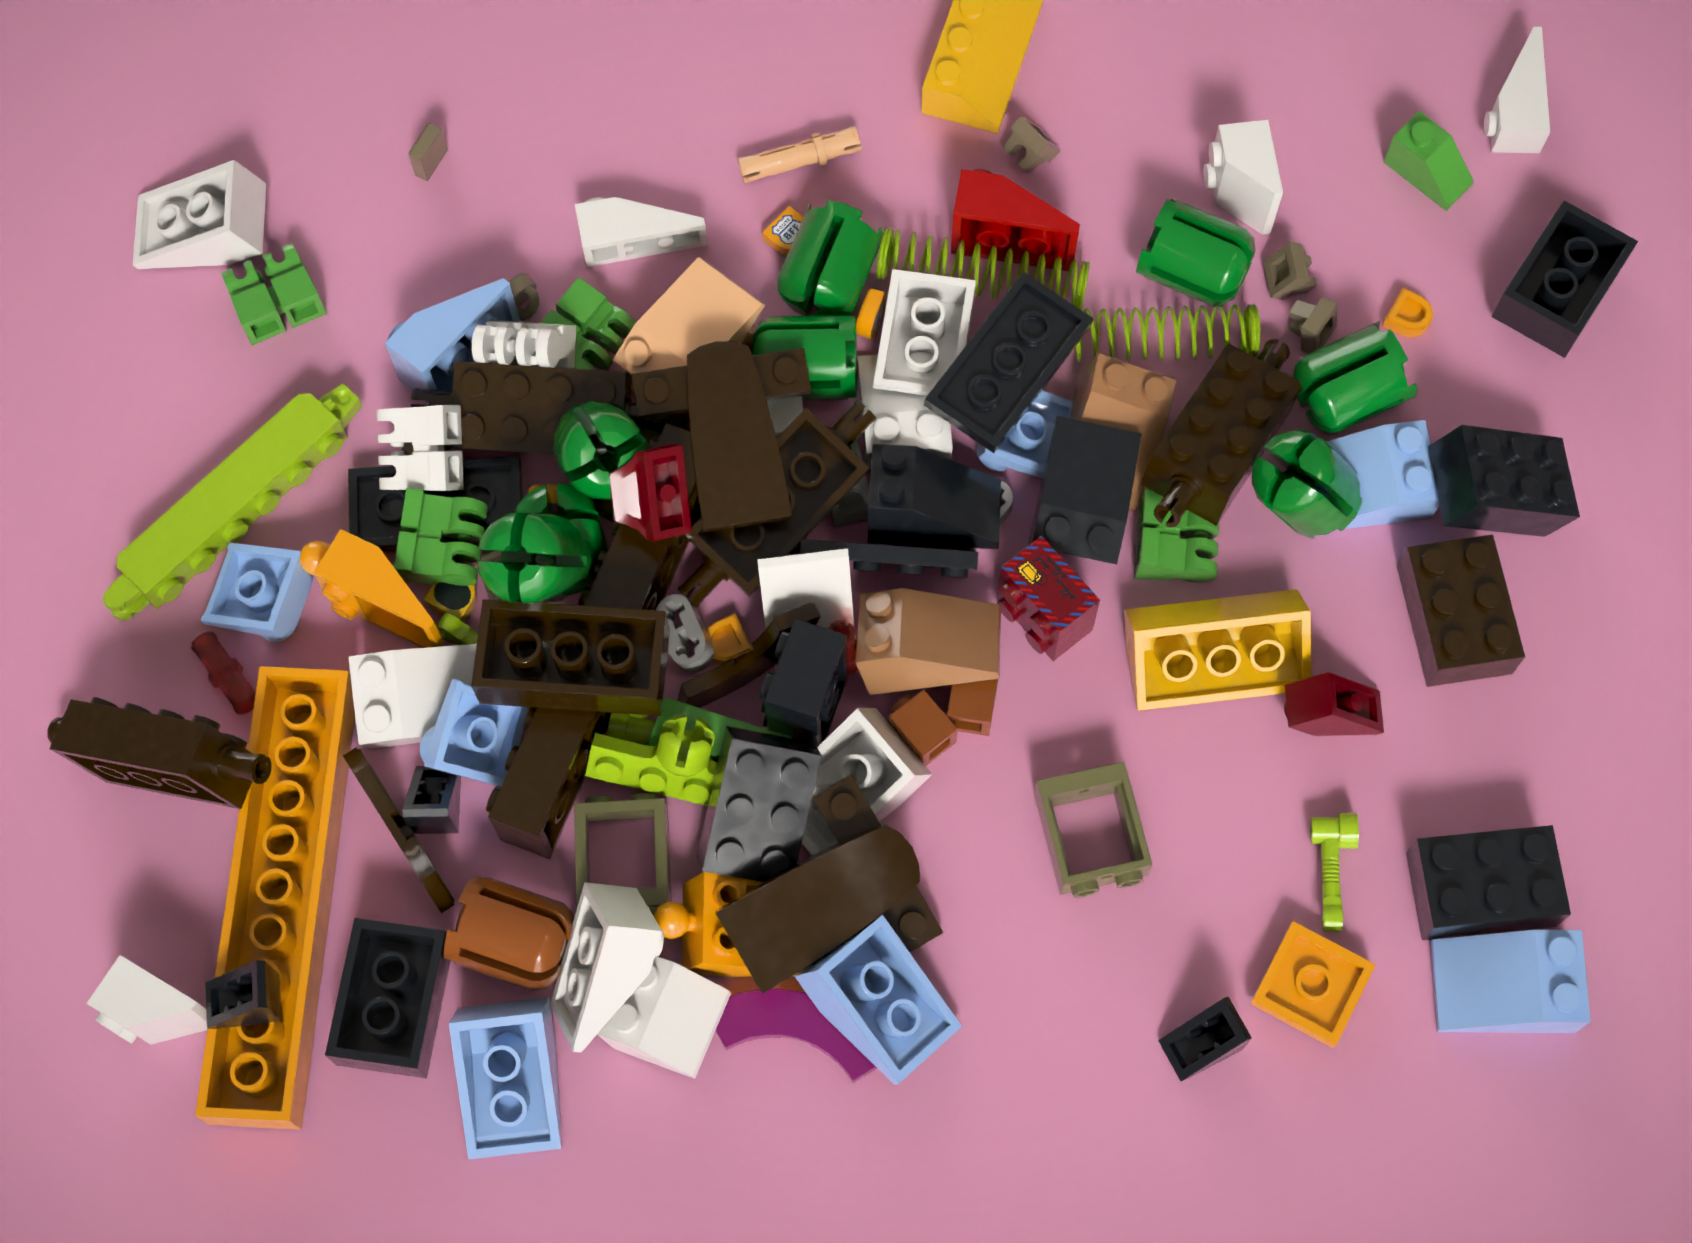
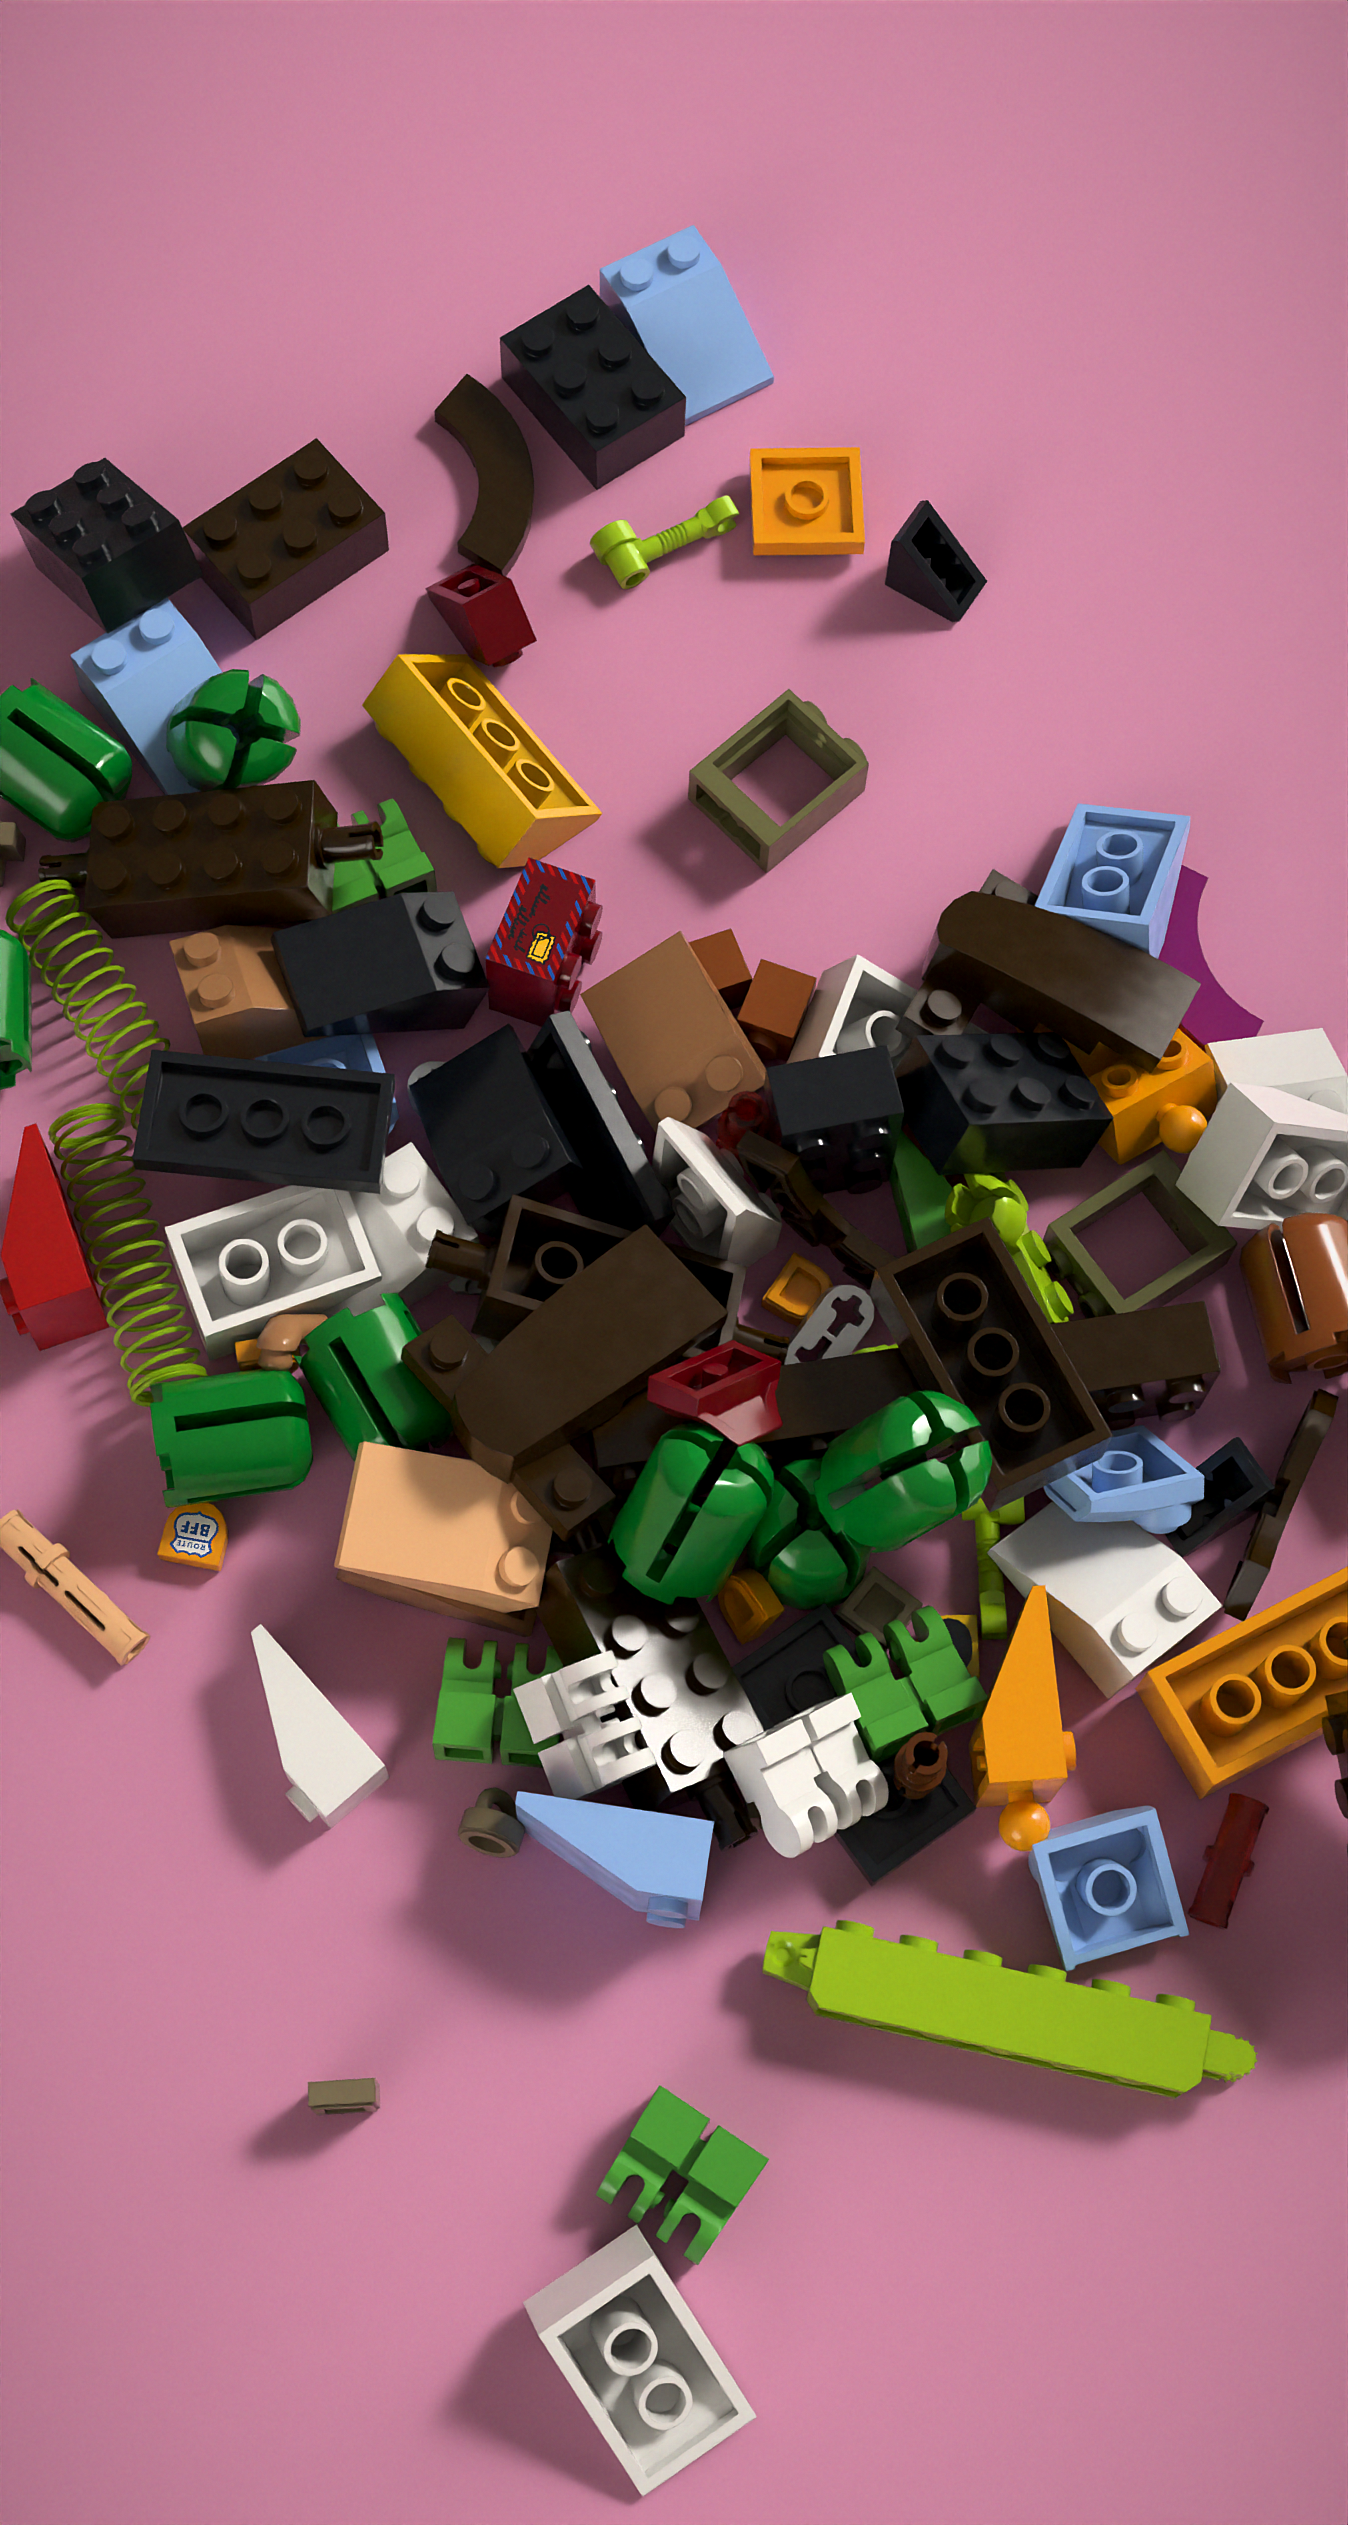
camera: 125 degrees left, 0 degrees up
(380, 506) = (917, 1752): none -> reddish brown pin
(869, 314) = (282, 1336): none -> medium nougat arm
(1450, 790) = (503, 472): none -> dark brown tile

